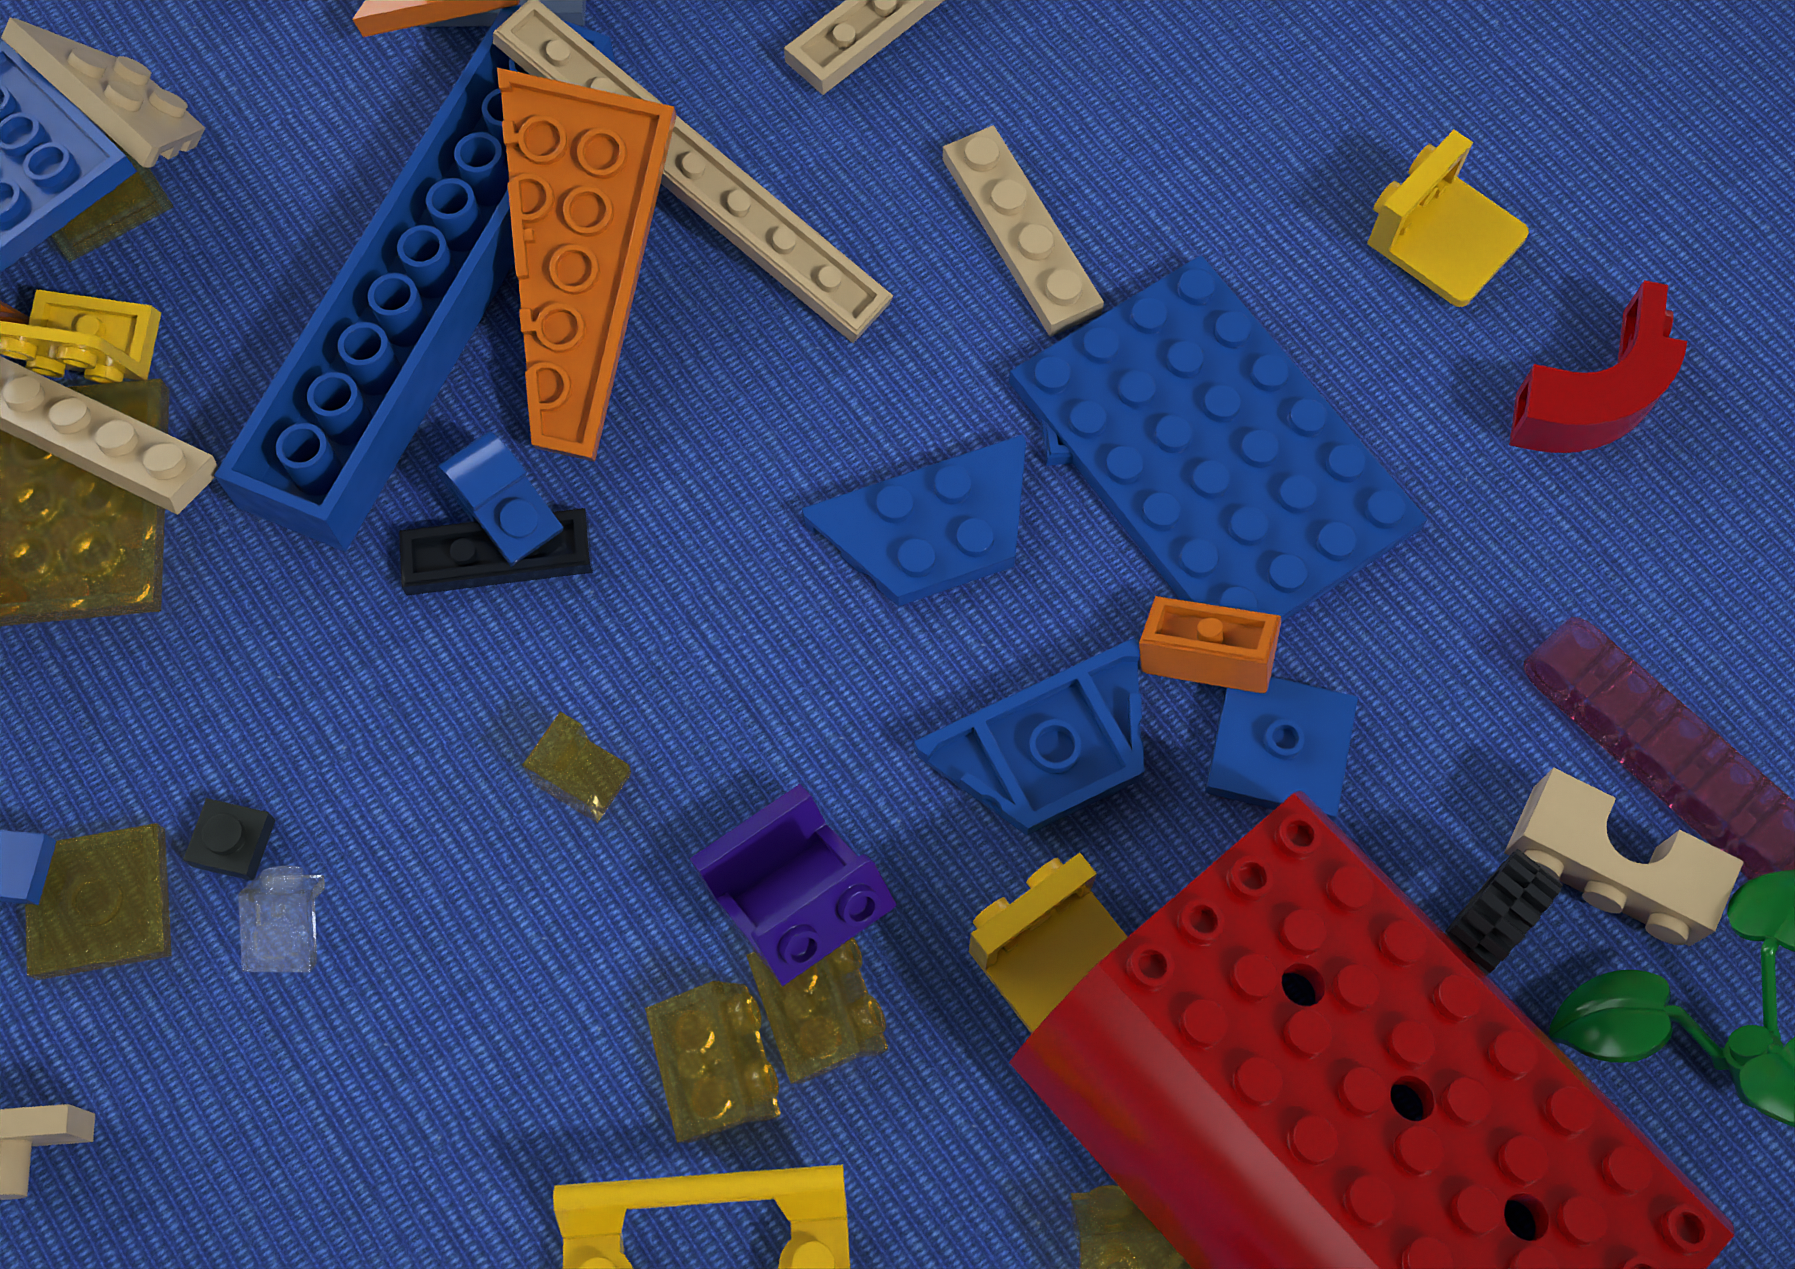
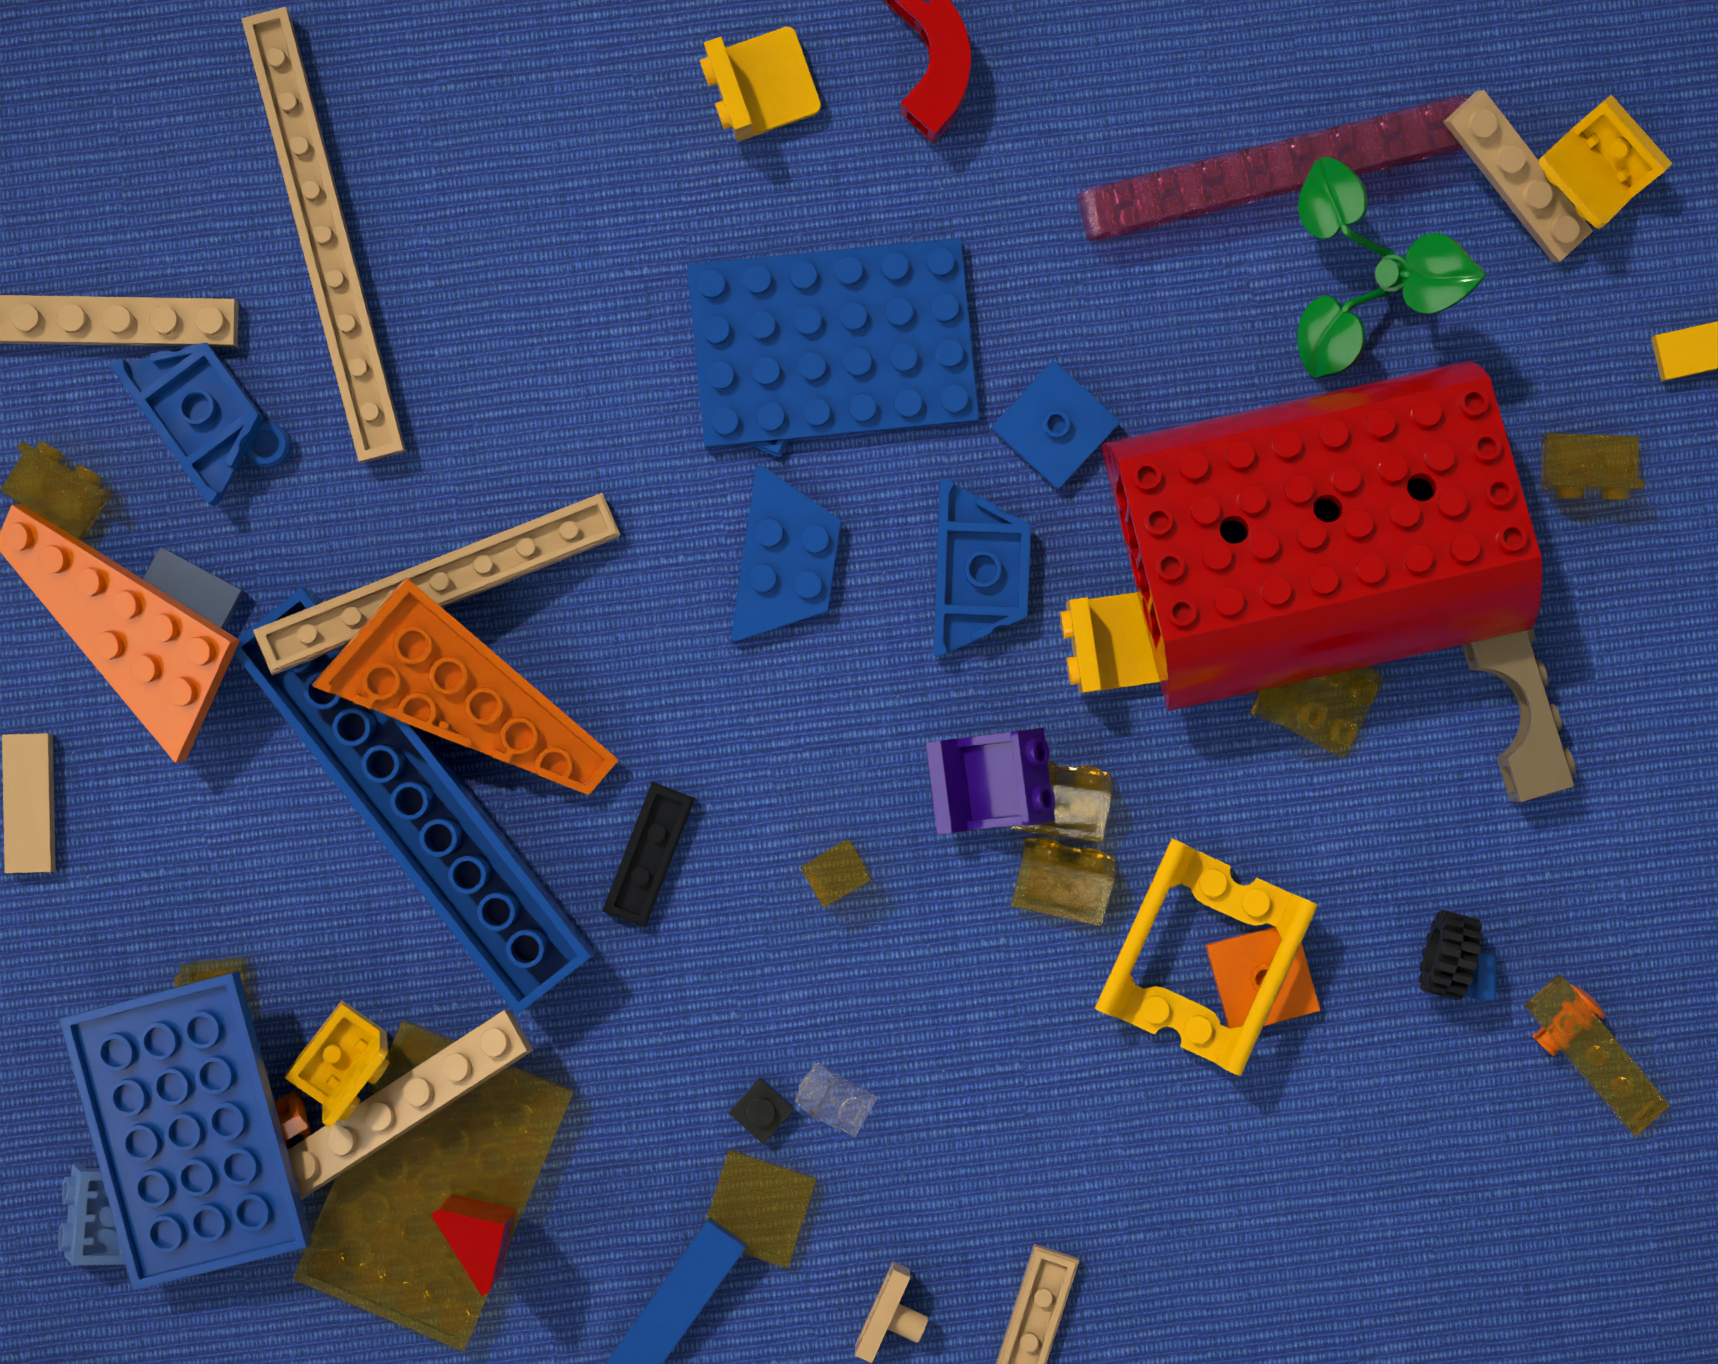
camera: 65 degrees left, 20 degrees up
(110, 93) = (148, 961): tan wing -> none
(499, 496) = (619, 836): blue brick -> none
(1022, 231) = (594, 373): tan plate -> none
(1209, 644) = (970, 432): orange slope -> none
(1503, 911) = (1236, 367): black tyre -> none
(1674, 895) = (1277, 248): tan arch -> none

